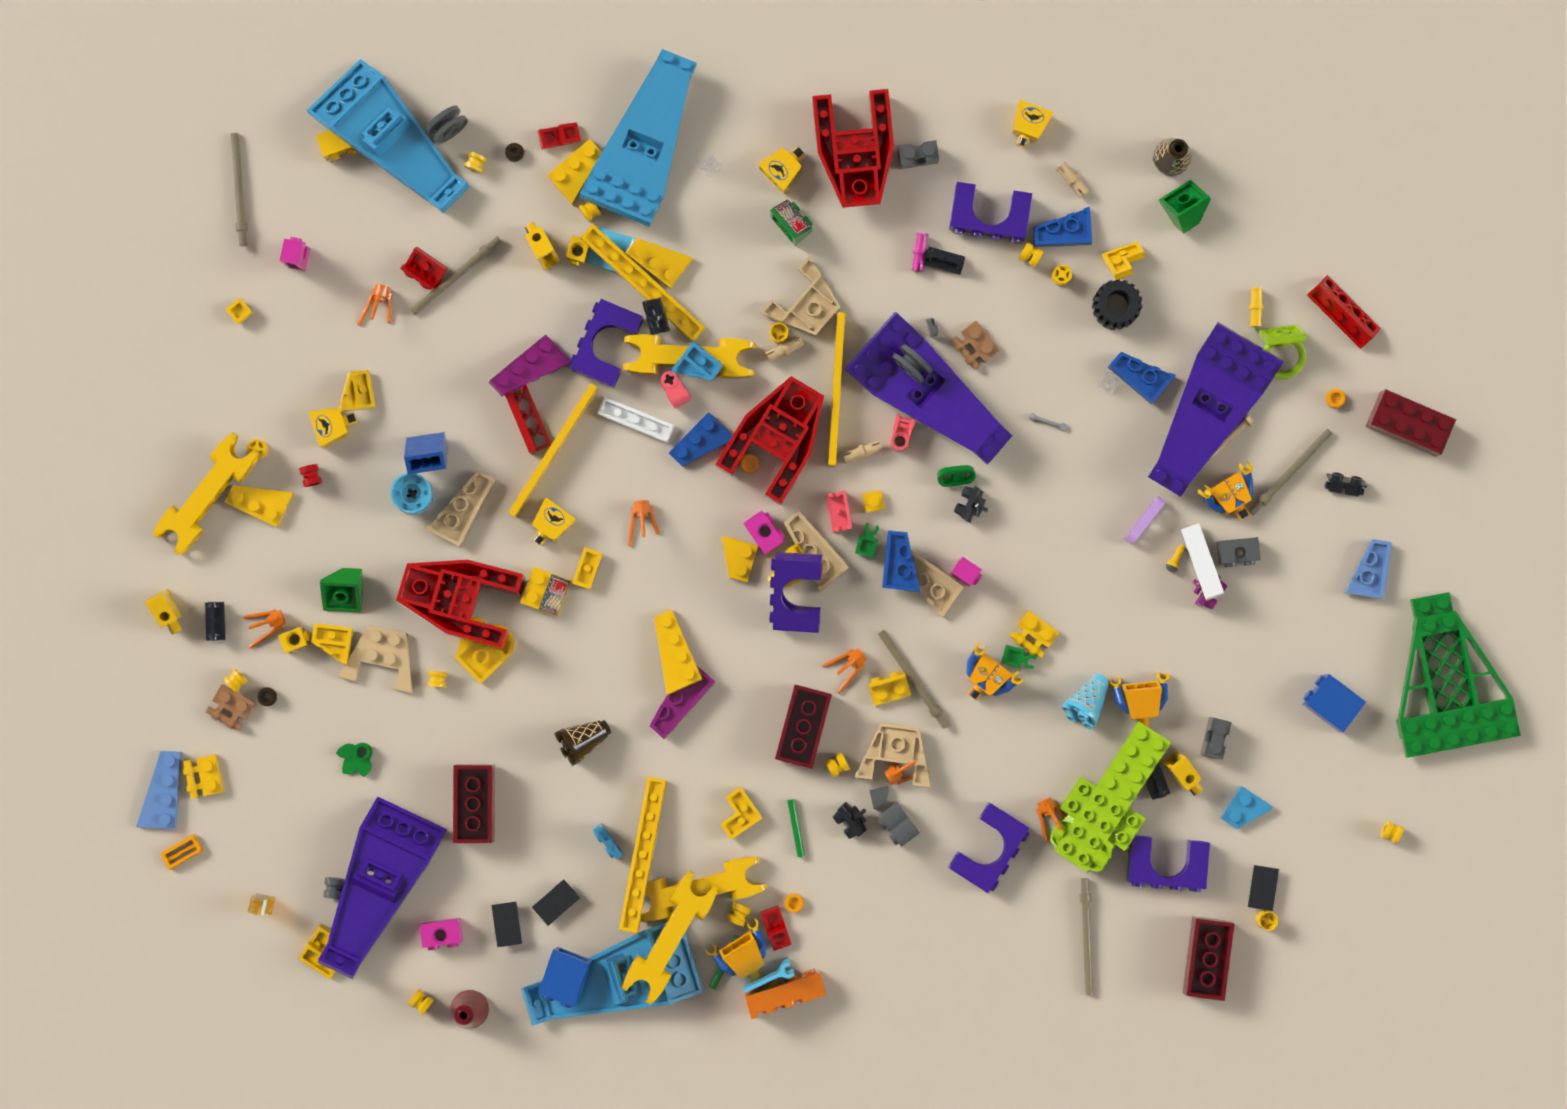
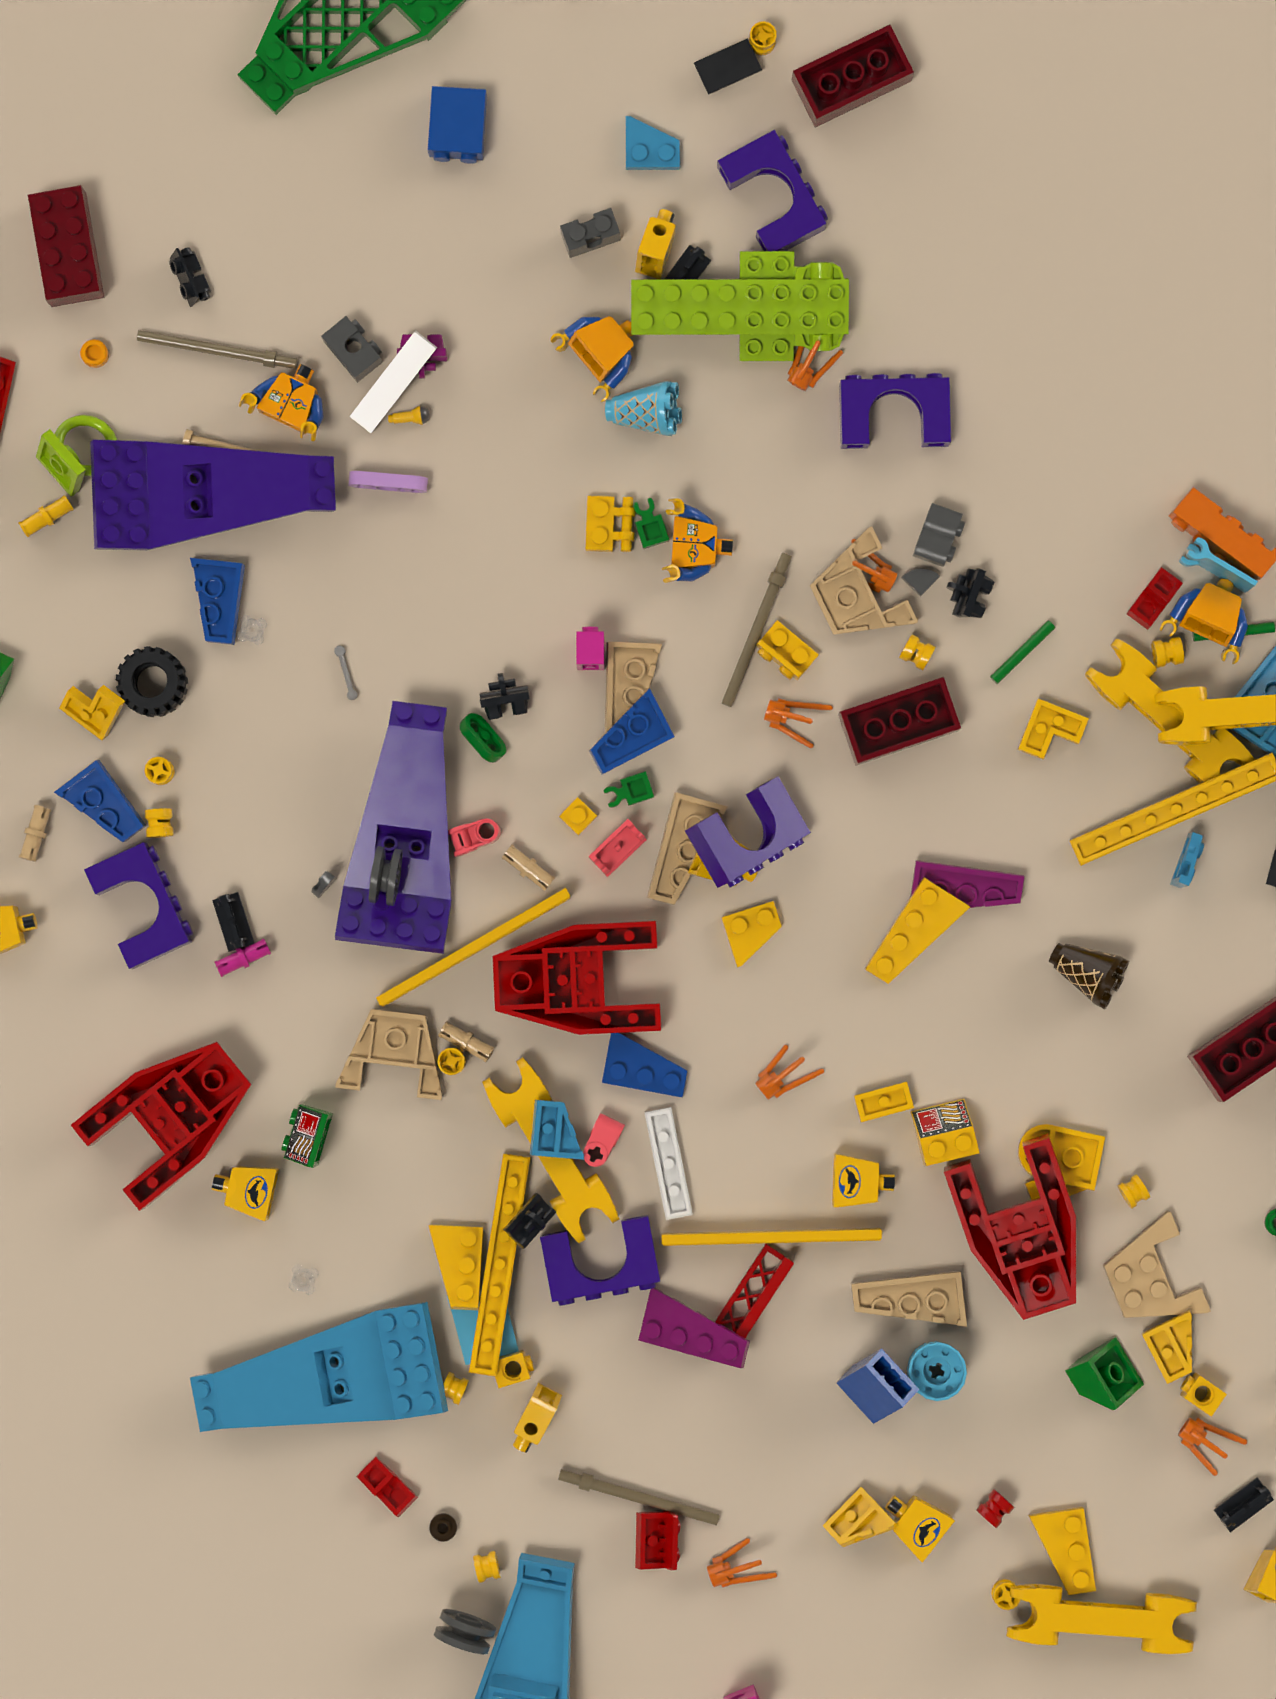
camera: 125 degrees left, 0 degrees up
(574, 171) = (418, 1438): yellow wing -> none
(750, 463) = (630, 991): light orange tile -> none
(768, 543) = (701, 936): dark pink brick -> none
(794, 902) = (1110, 597): light orange tile -> none
(908, 154) = (132, 1048): dark grey brick -> none
(979, 341) = (303, 815): medium nougat plate -> none
(1085, 898) = (878, 262): dark tan bar -> none
(1371, 572) = (272, 179): medium blue wing -> none

